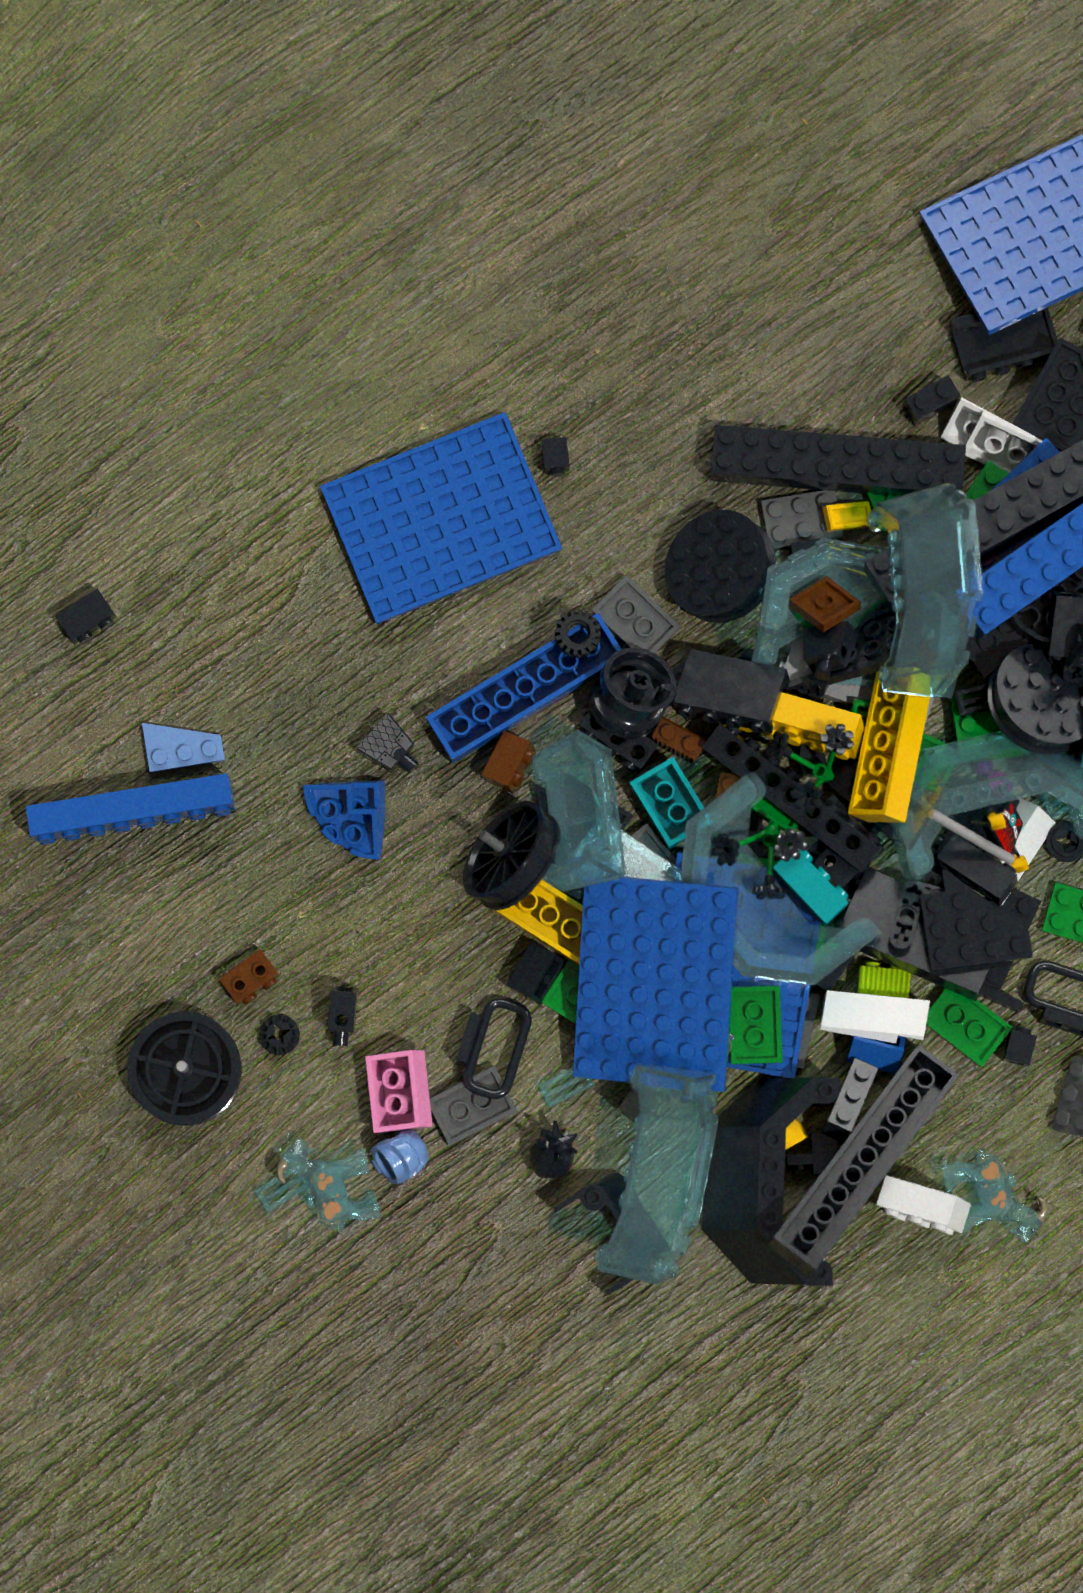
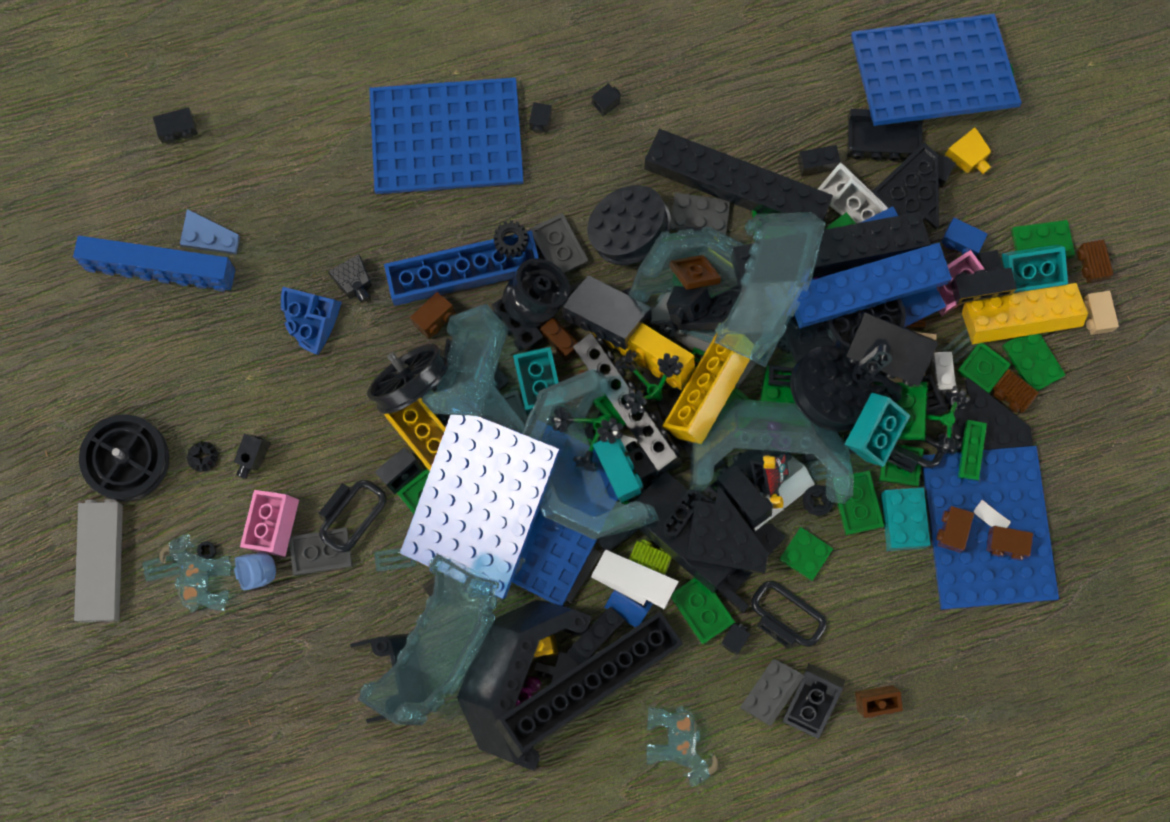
camera: 20 degrees right, 5 degrees down
(200, 1207) = (98, 561): none -> light grey brick
(250, 978) = (195, 409): reddish brown brick -> none
(336, 1147) = (200, 551): none -> black bush
(552, 1152) = (365, 604): black hair -> none
(632, 403) = (606, 99): none -> black brick
(756, 1025) = (544, 558): green plate -> none
(791, 1184) = (532, 684): none -> magenta plate
(846, 516) = (731, 221): yellow tile -> none
(923, 1206) = (624, 733): white brick -> none
(971, 836) = (746, 468): light grey bar -> none

